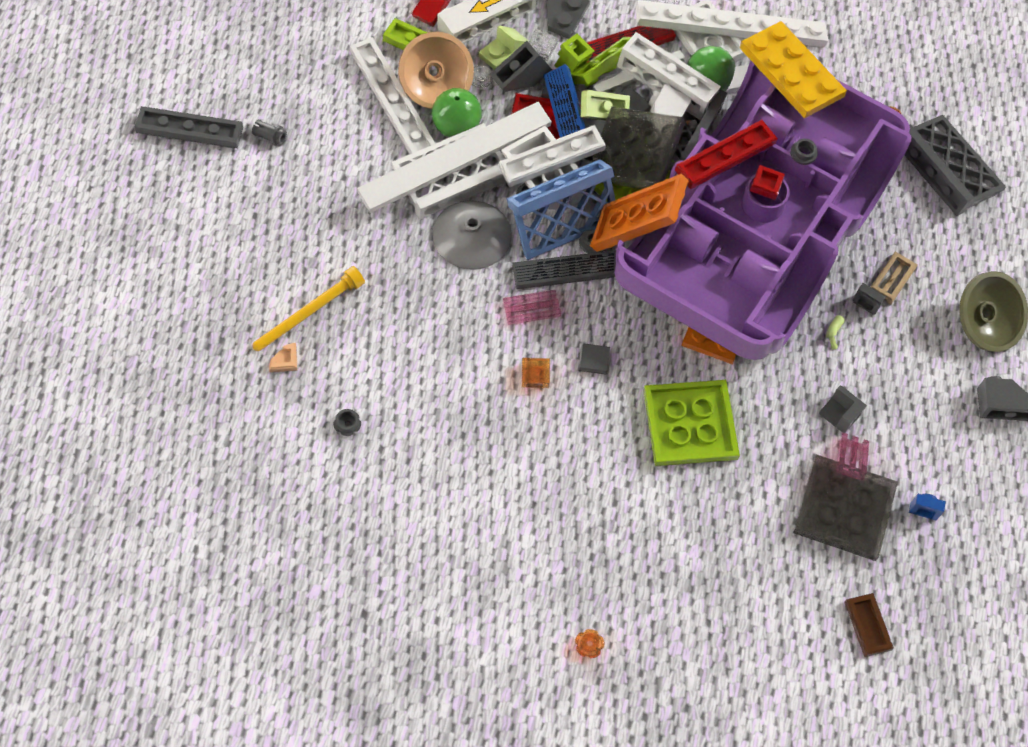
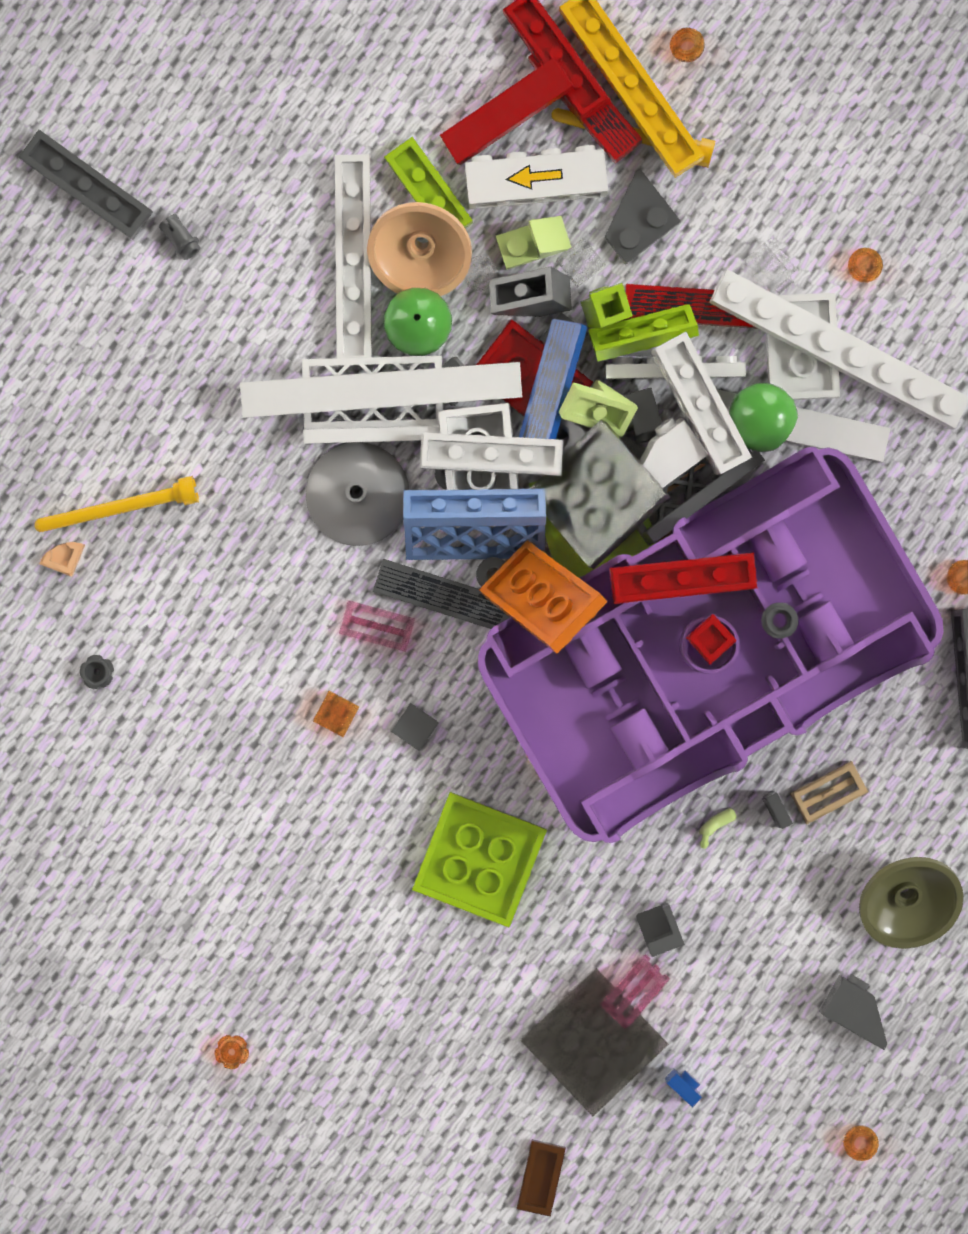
camera: 35 degrees right, 25 degrees up
(793, 69) = (841, 493): yellow plate -> none

